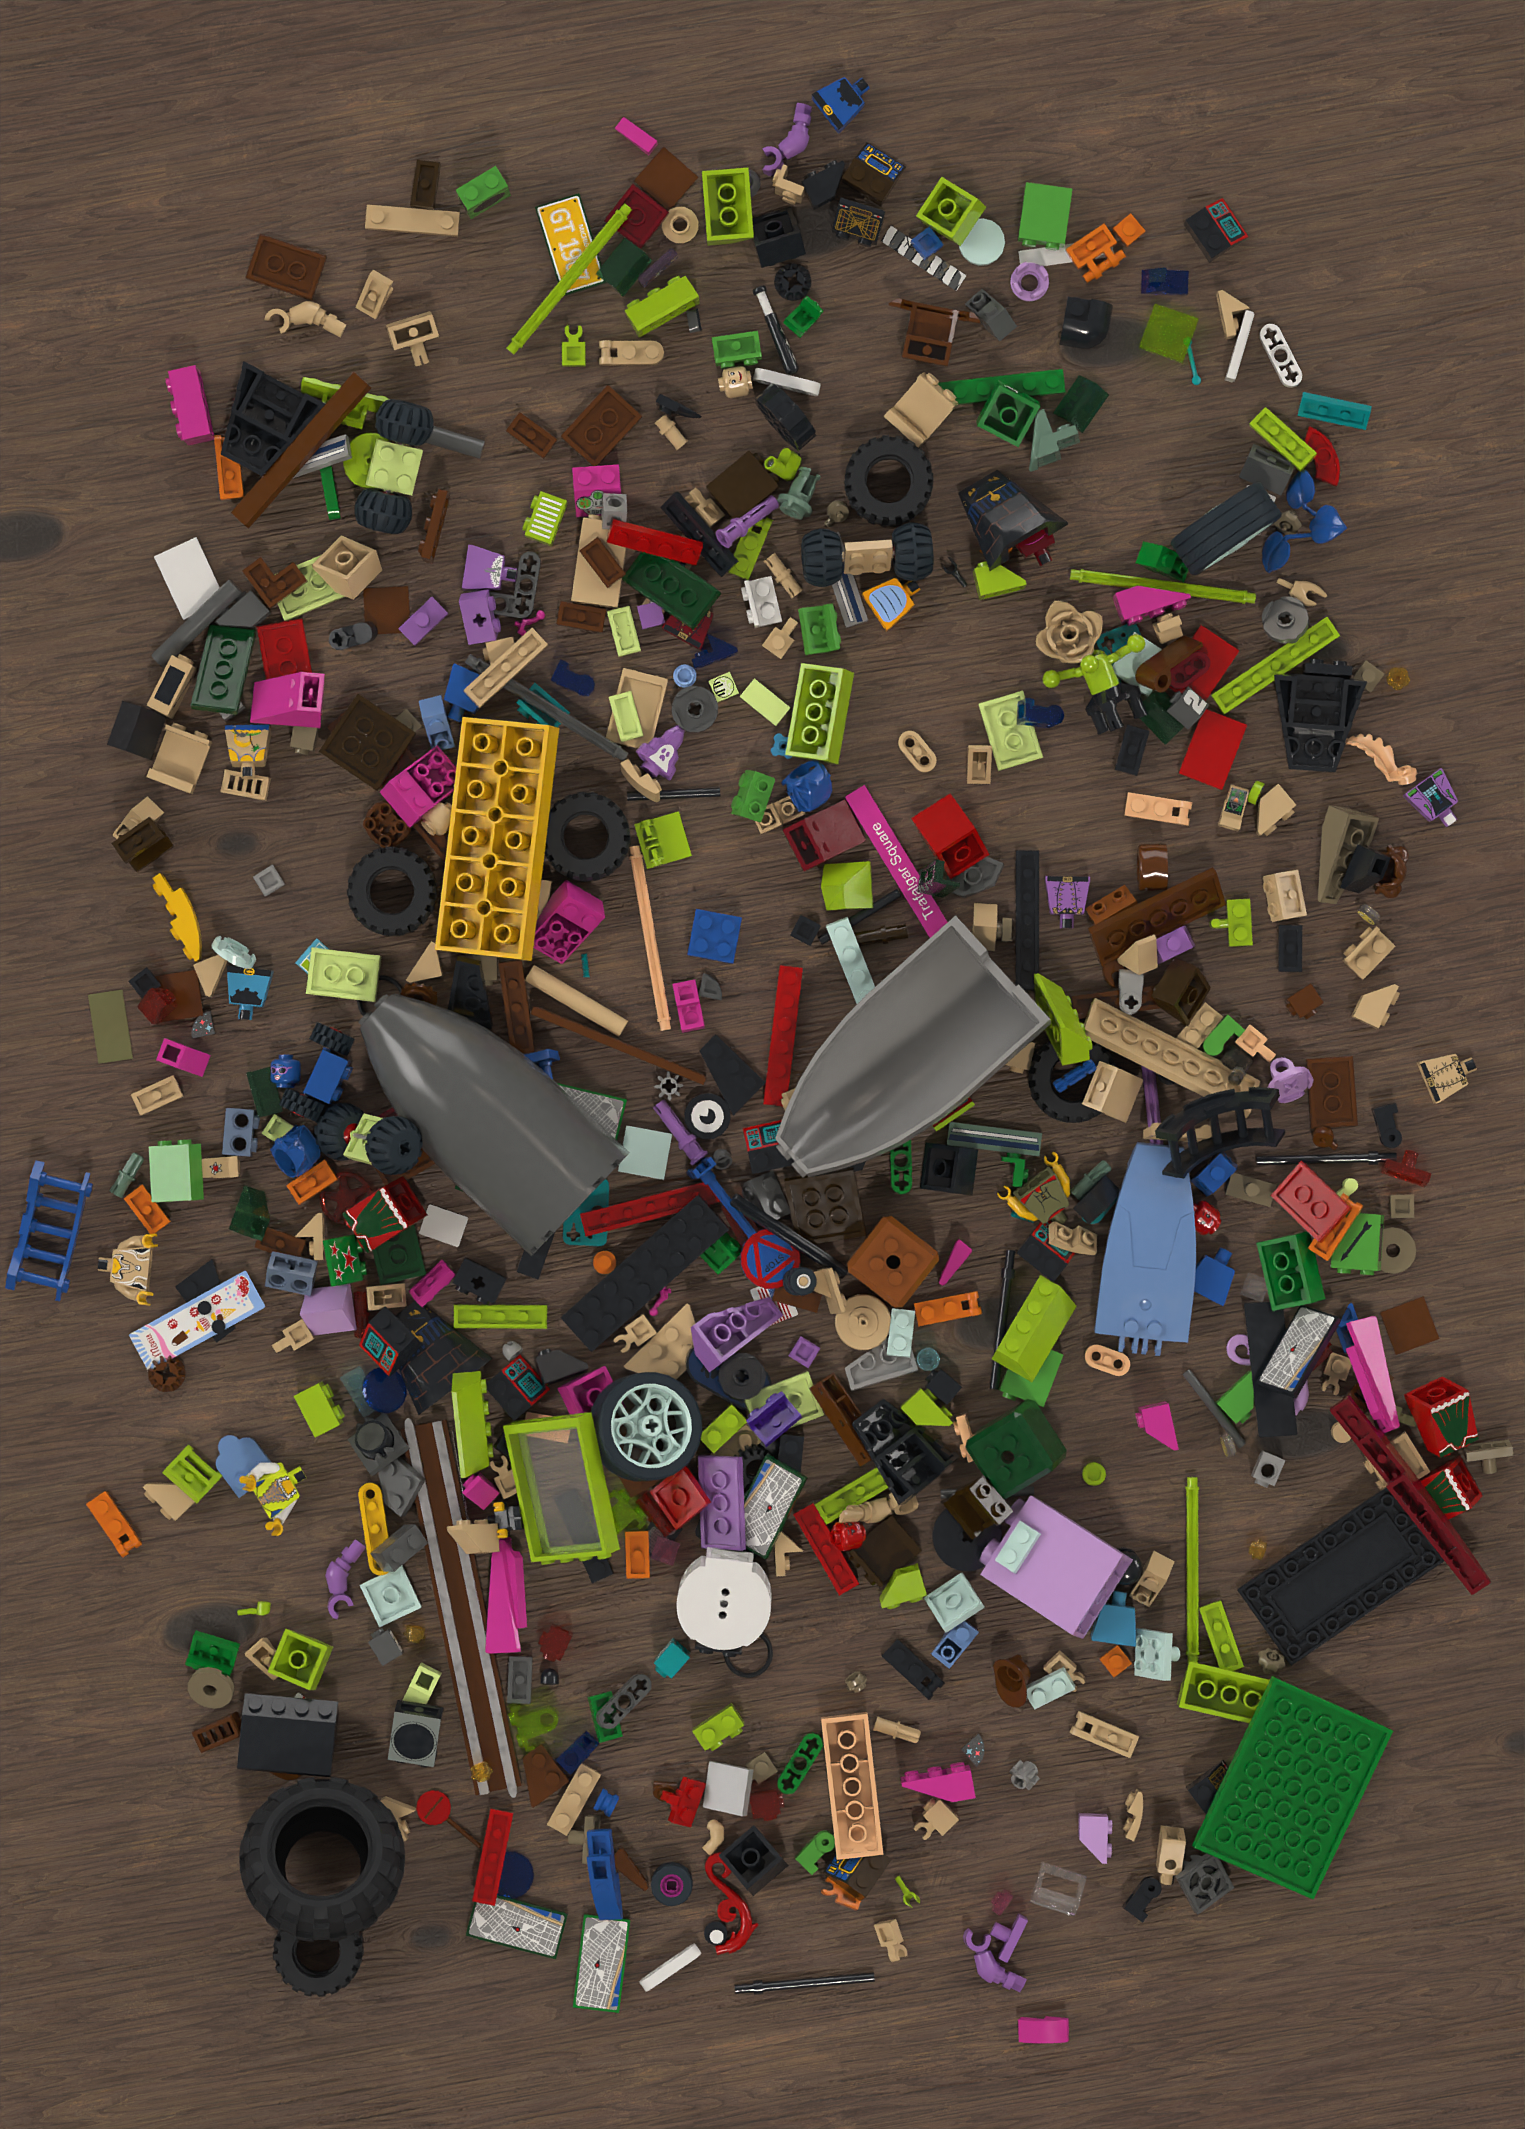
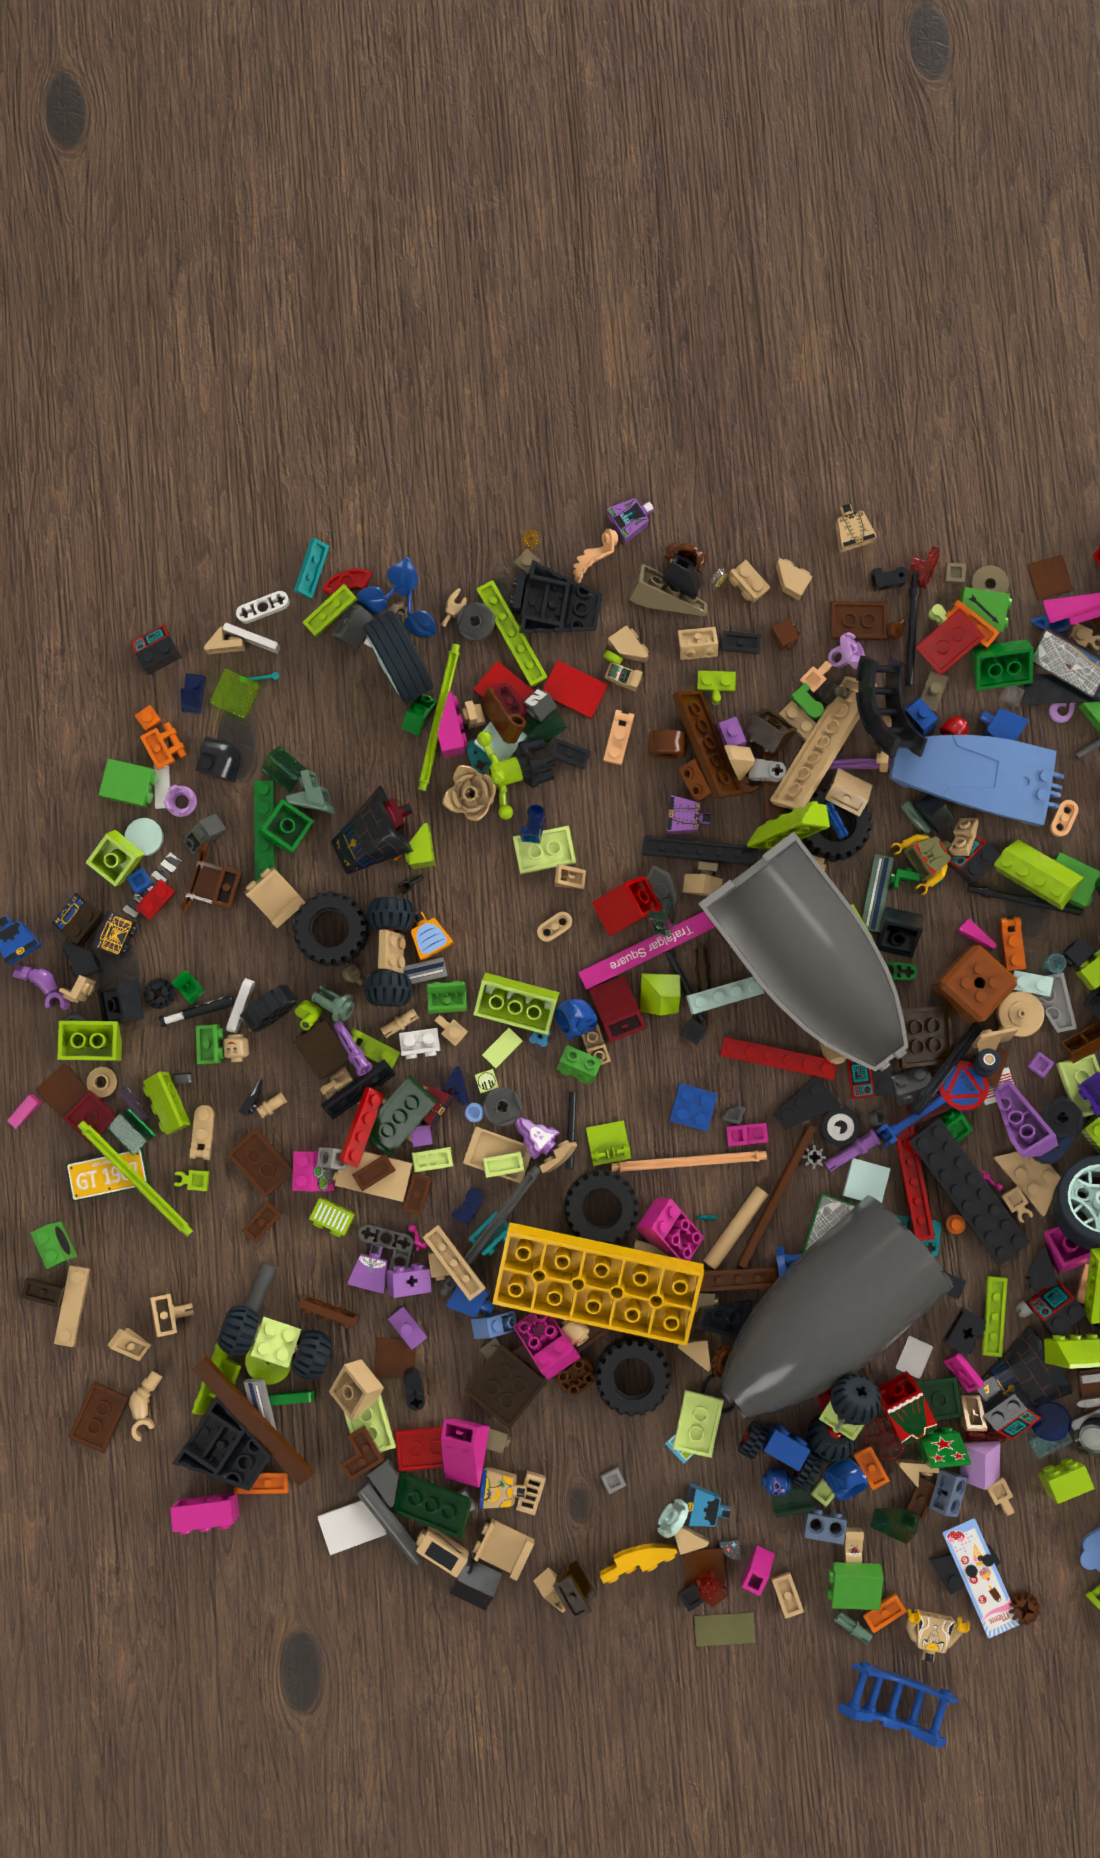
camera: 90 degrees left, 5 degrees down
(906, 264) = (155, 899): none -> red plate

